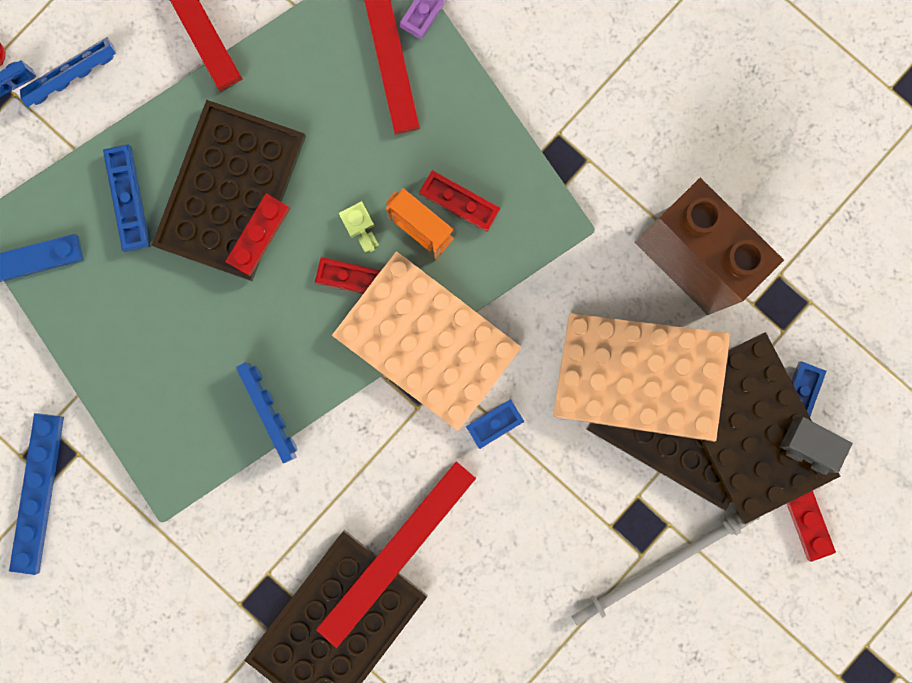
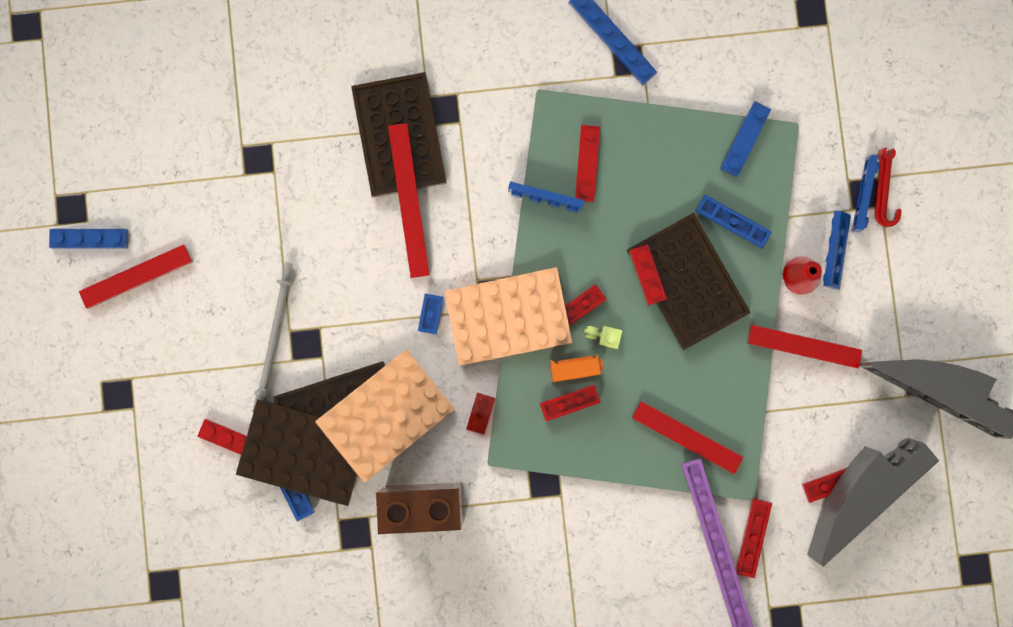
camera: 125 degrees right, 0 degrees up
(121, 82) = (802, 275): none -> red cone
(194, 401) = (587, 163): none -> red plate
(548, 282) = (480, 413): none -> clear red slope
(815, 445) = (265, 473): dark grey brick -> none

